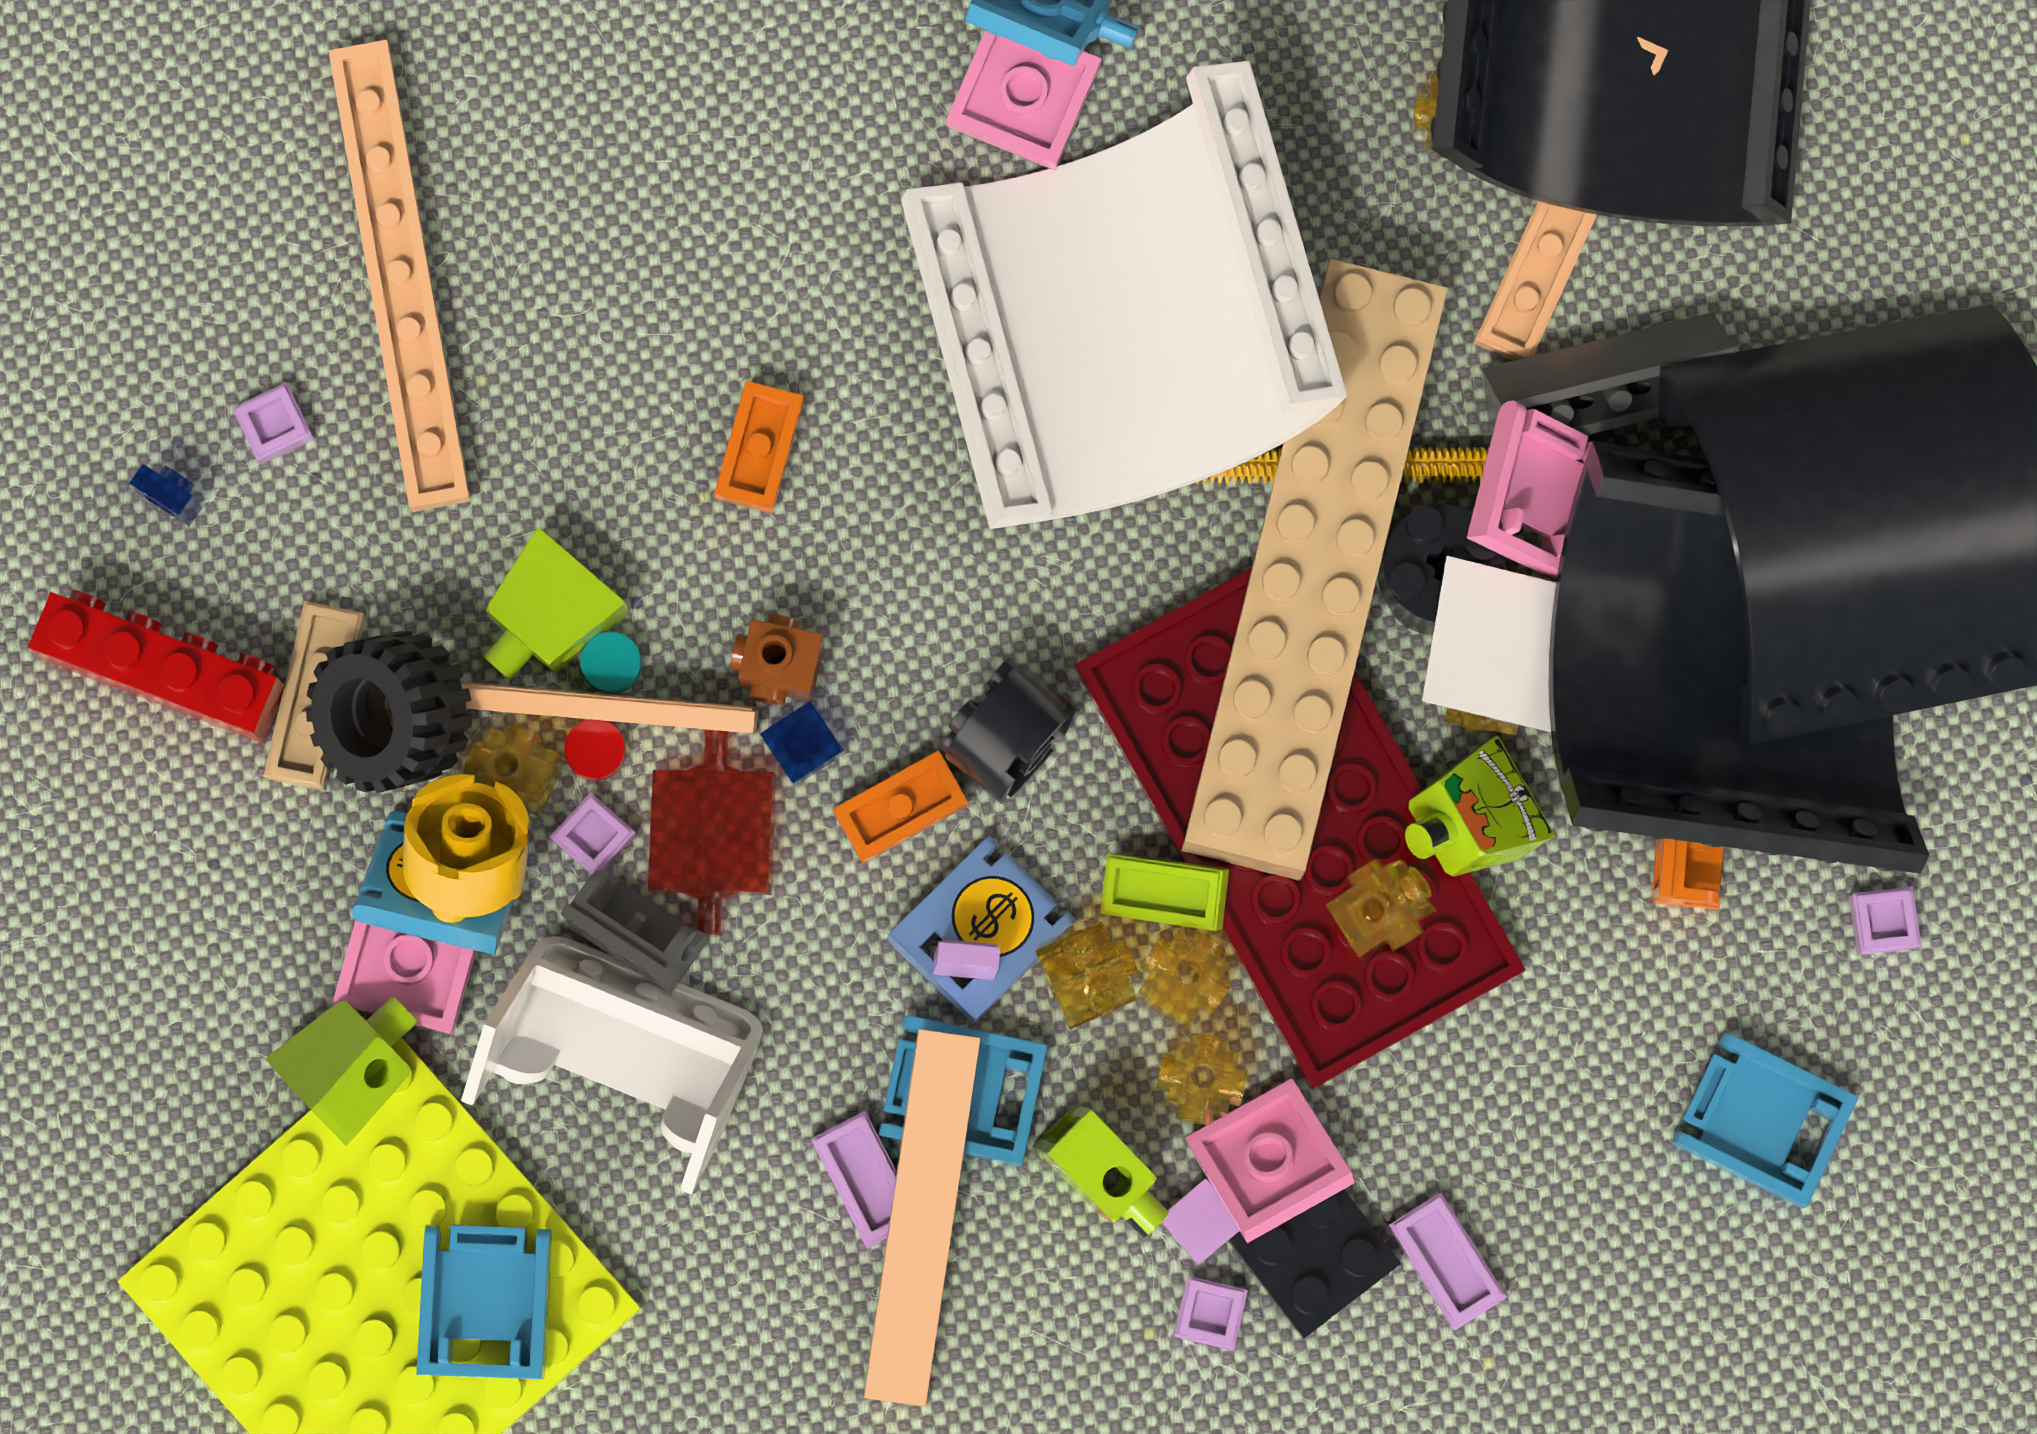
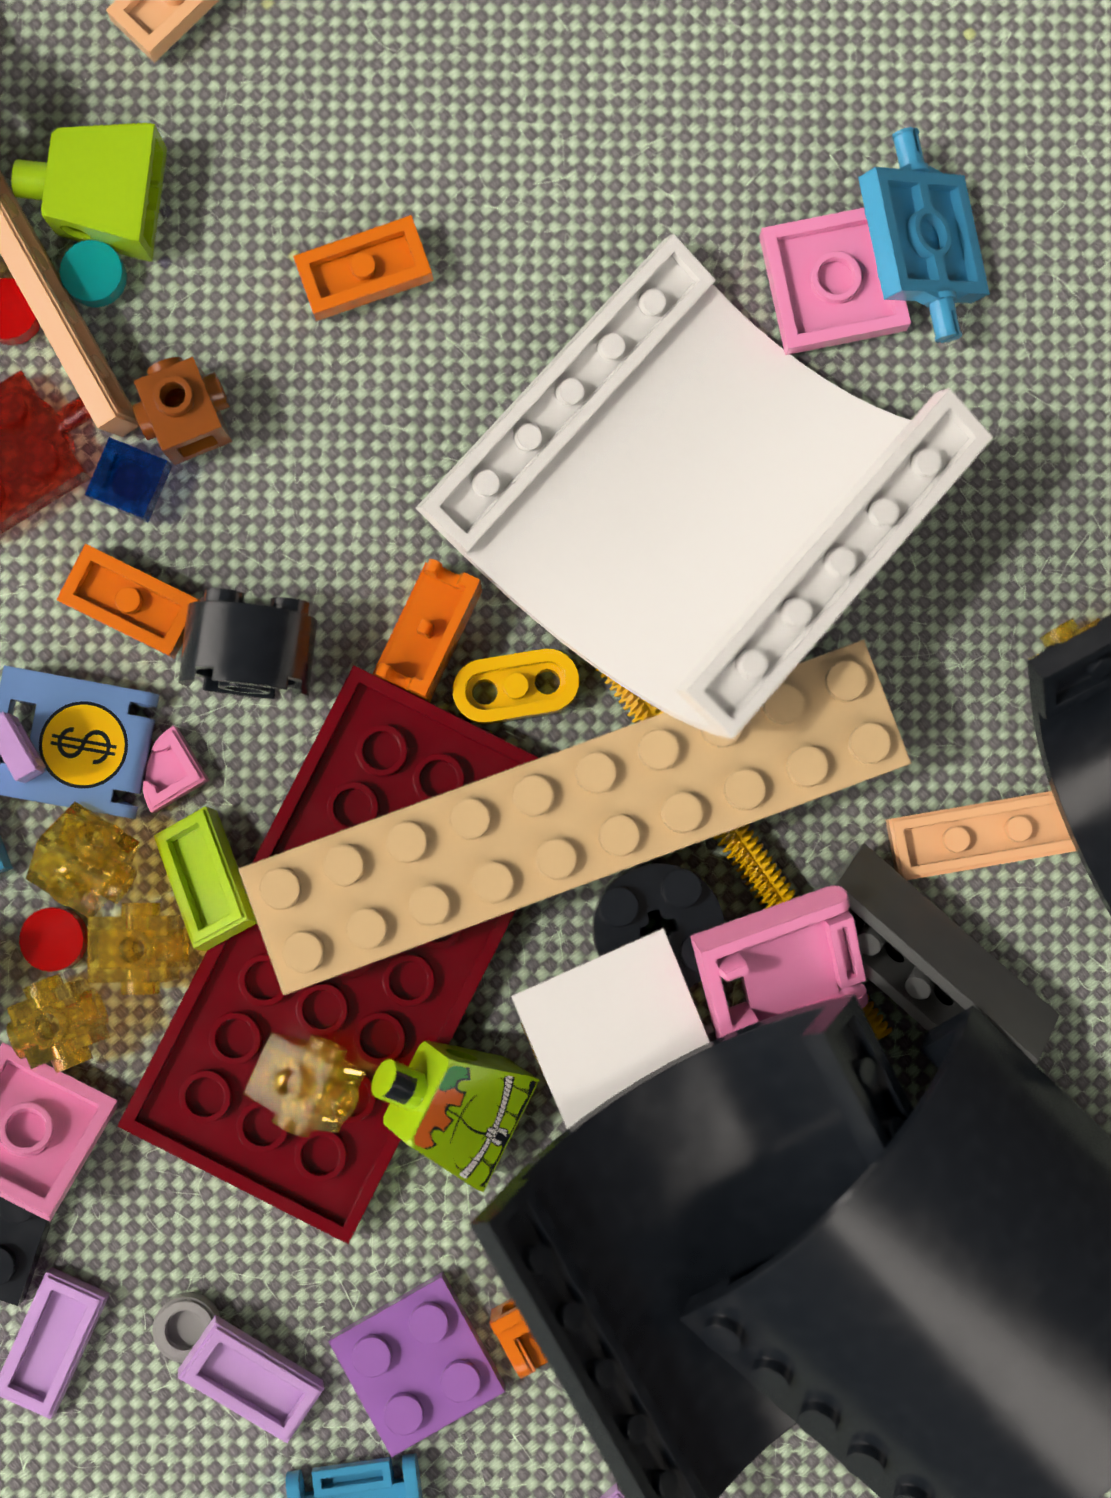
camera: 55 degrees right, 5 degrees up
(1056, 868) = (171, 771): none -> bright pink tile
(1083, 589) = (428, 629): none -> orange hinge
(1128, 1048) = (53, 939): none -> red tile
(1176, 554) = (515, 684): none -> yellow plate
(1506, 1146) = (182, 1323): none -> light grey tile
(1580, 1118) = (250, 1379): none -> lavender tile
(1654, 985) = (417, 1364): none -> medium lavender plate

